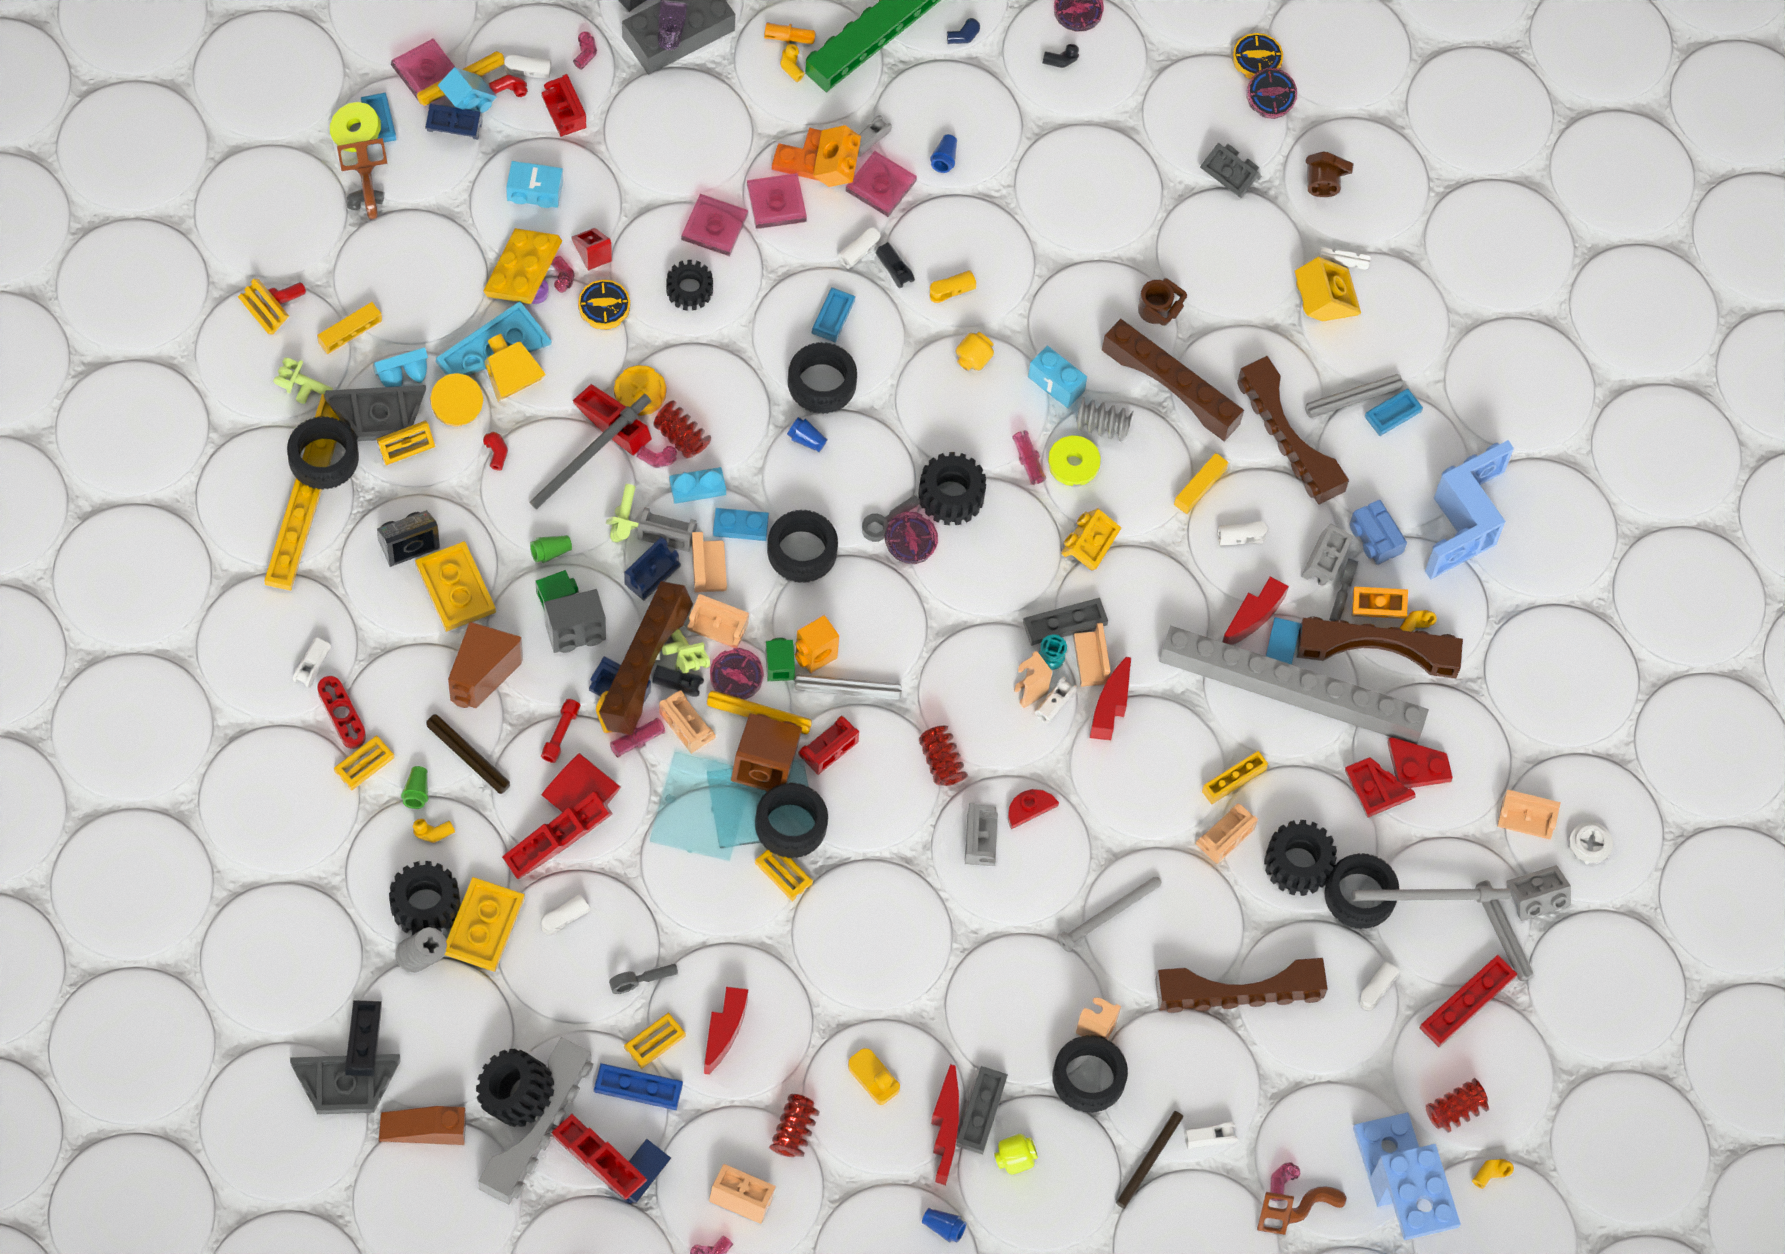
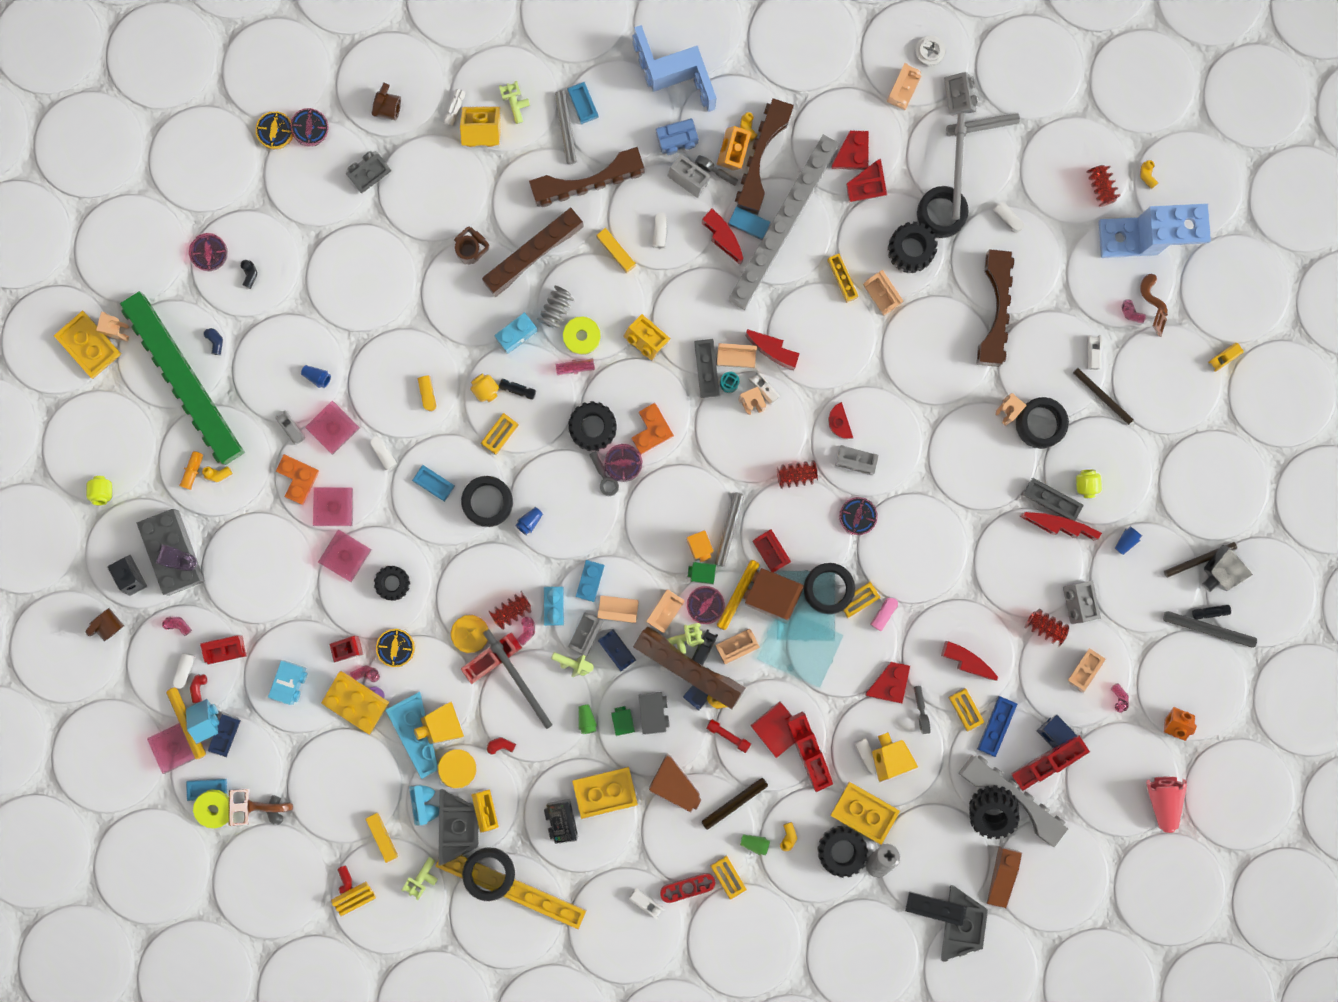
camera: 80 degrees left, 20 degrees up
(567, 943) = (892, 758): none -> yellow torso
(638, 738) = (742, 679): clear pink pin -> none
(673, 933) = (891, 683): none -> red wing
(770, 906) = (884, 613): none -> bright pink bar
(802, 522) = (618, 520): black tyre -> none
(837, 156) = (306, 455): light orange brick -> none
(841, 1173) = (1081, 602): none -> light grey bracket
(873, 1076) = (1015, 567): yellow piece -> none
(894, 263) = (399, 432): black bar -> none
(902, 851) = (858, 516): none -> tile
(915, 386) = (506, 437): none -> yellow tile
(963, 574) = (657, 431): none -> orange plate
(982, 393) = (517, 389): none -> black axle
(1067, 940) = (926, 385): light grey bar -> none
(1376, 322) = (515, 105): none -> yellowish green arm
(1468, 1001) = (1029, 160): red plate -> none

